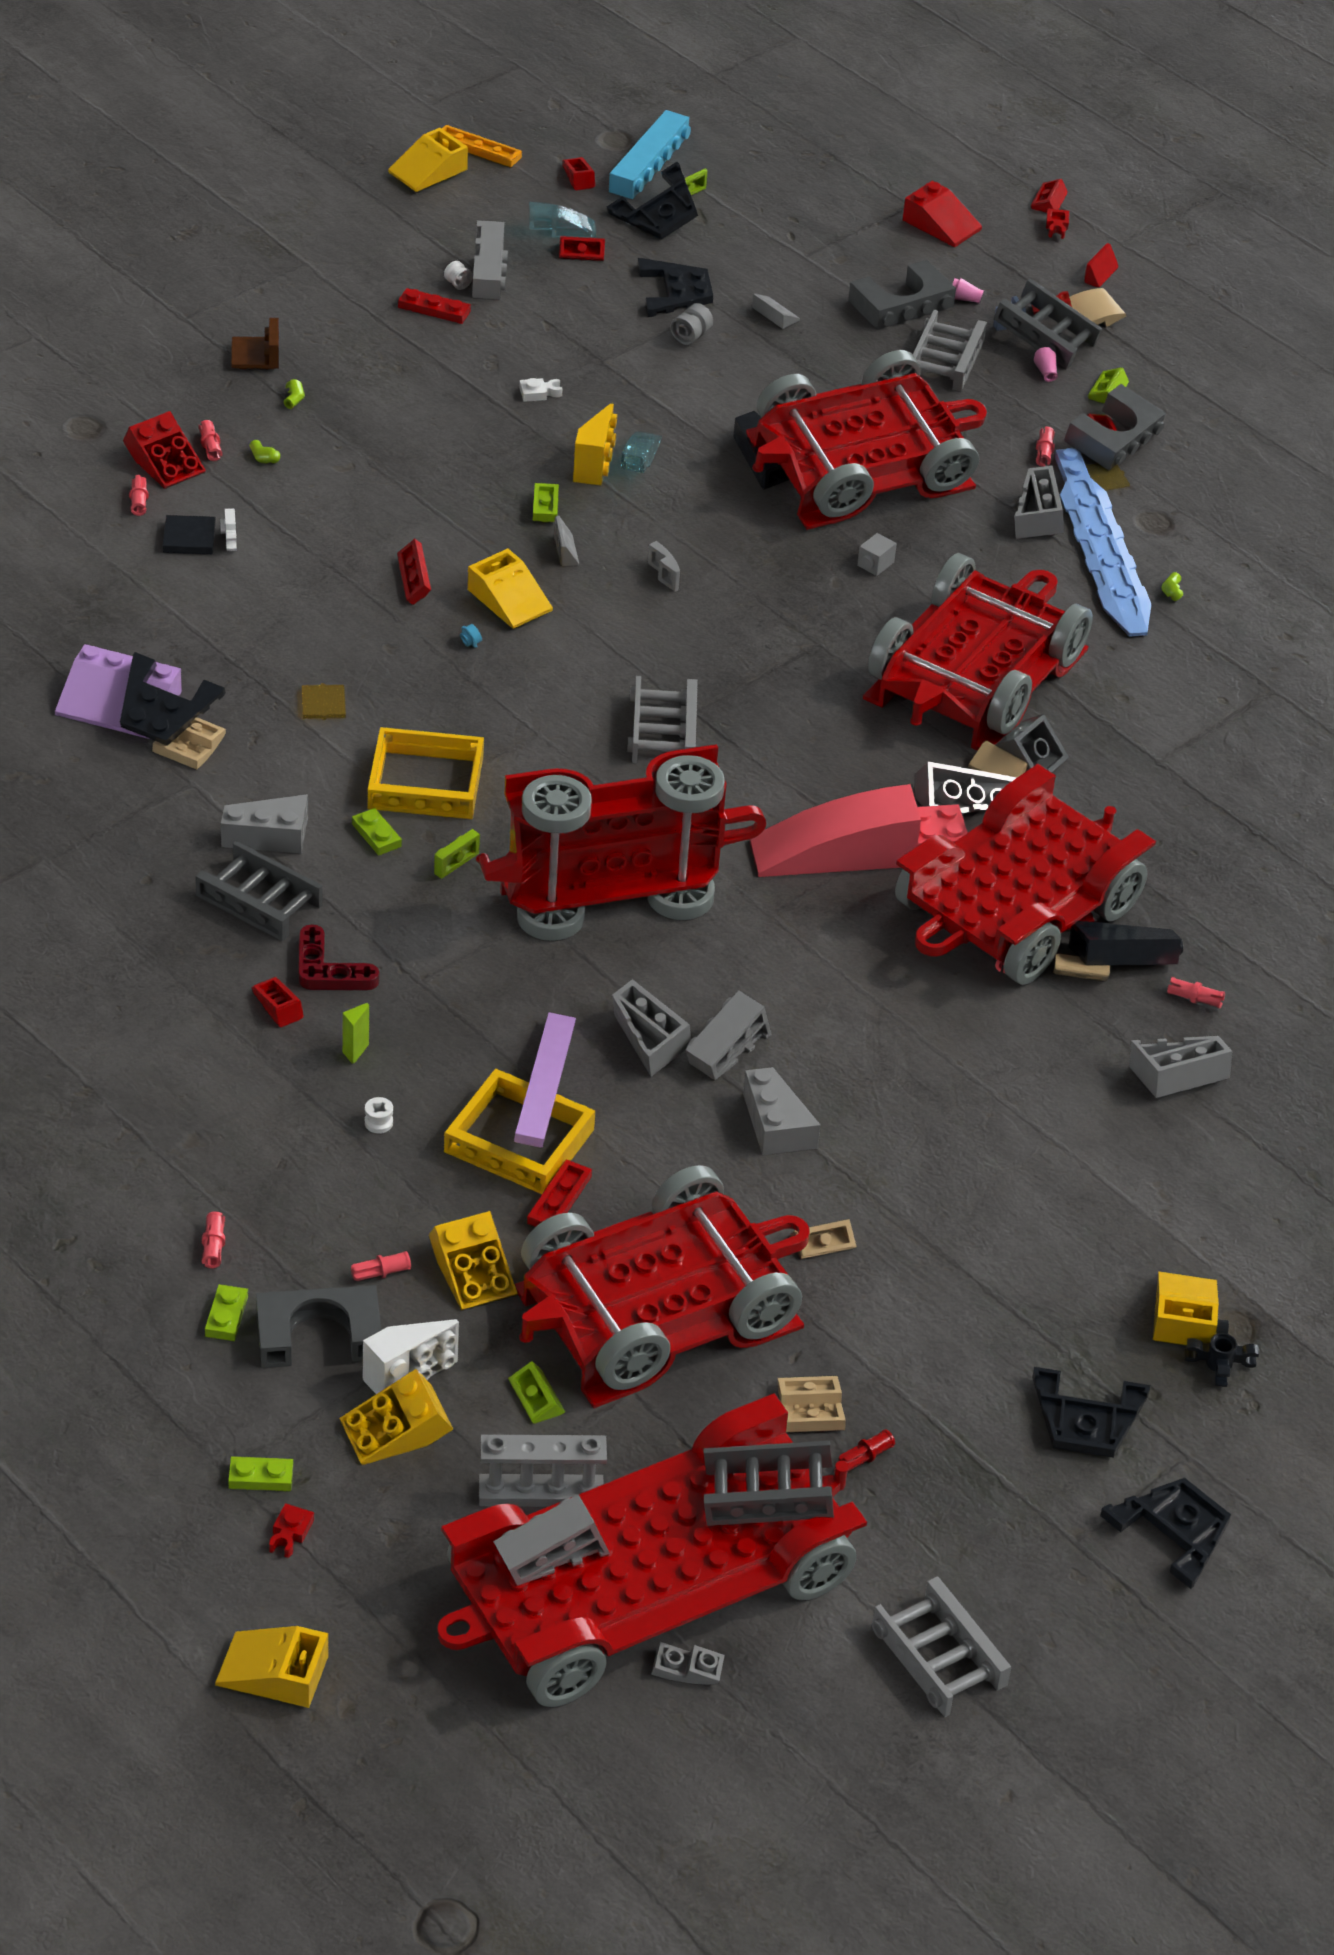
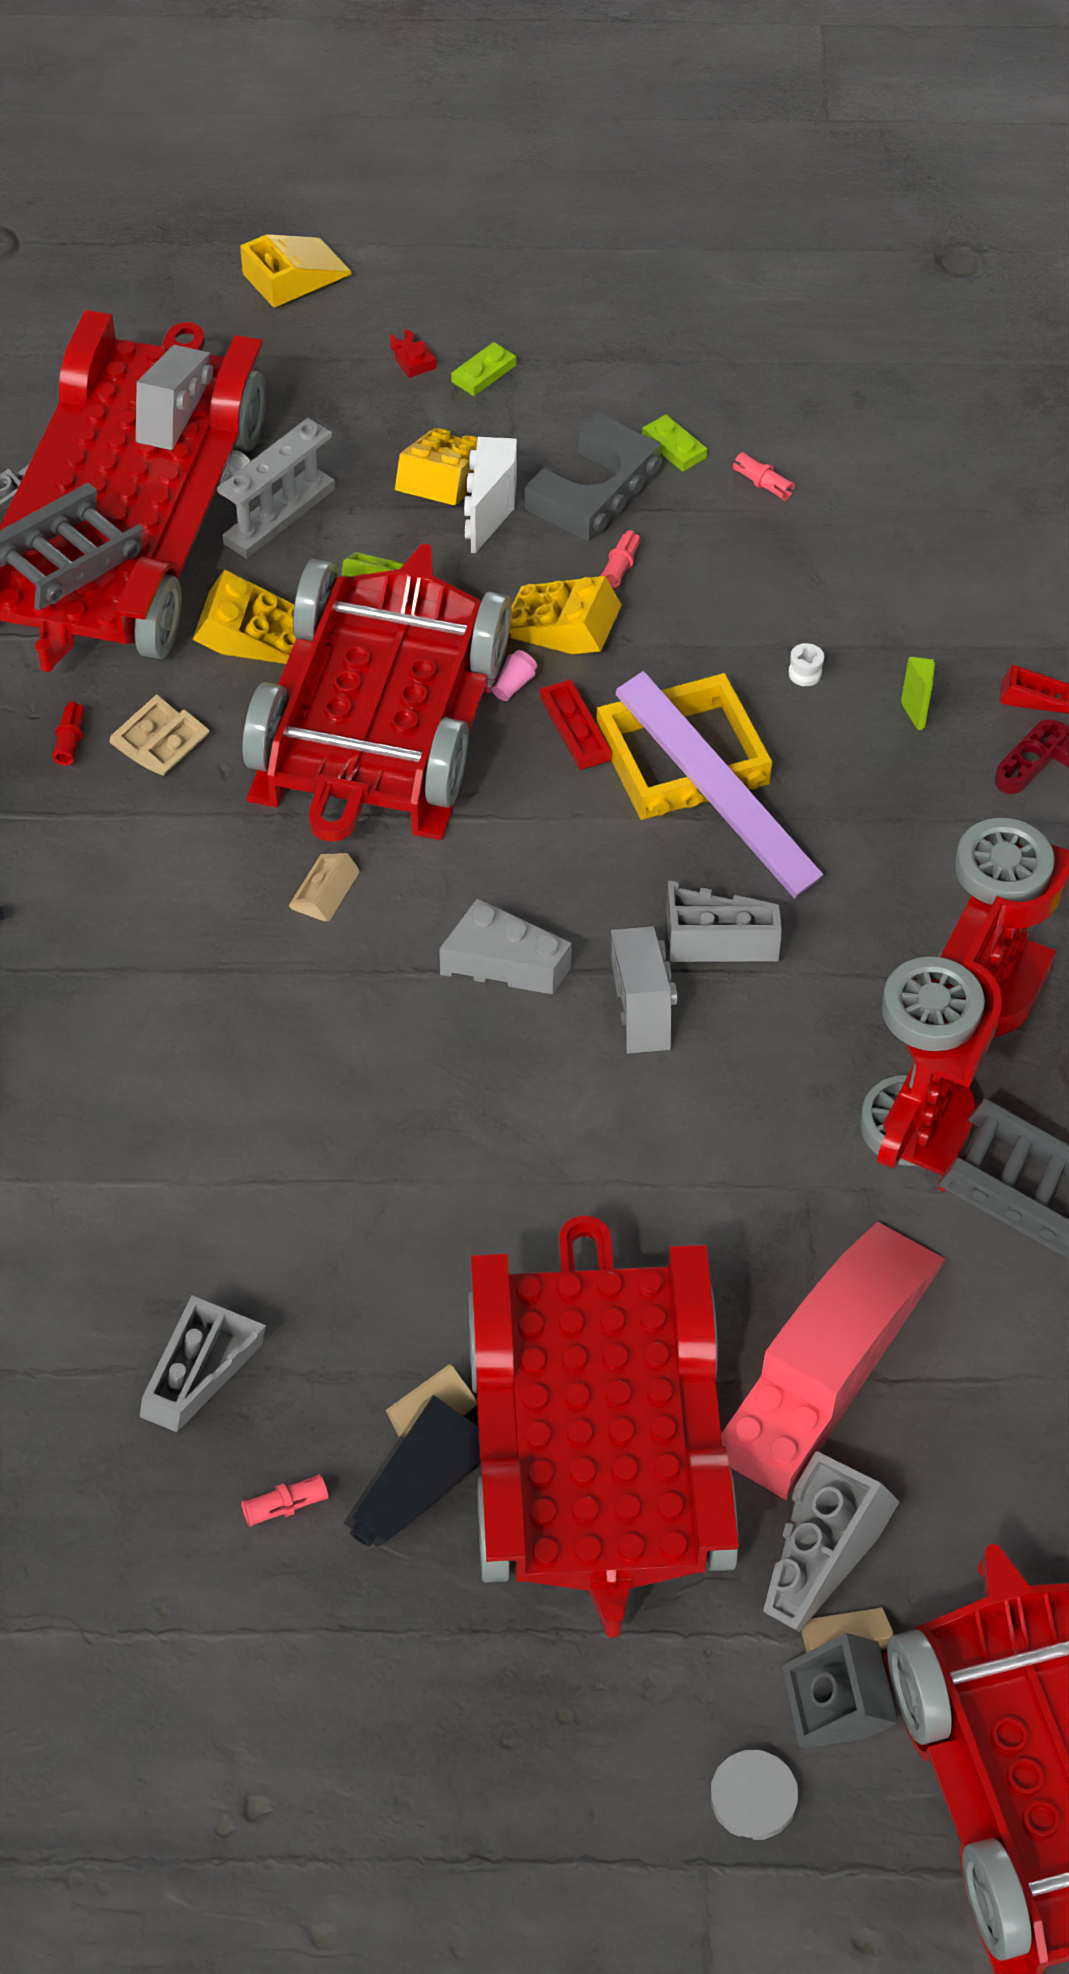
camera: 135 degrees right, 10 degrees up
(664, 1418) = (246, 621): none -> yellow slope
(1110, 758) = (754, 1794): none -> light grey tile

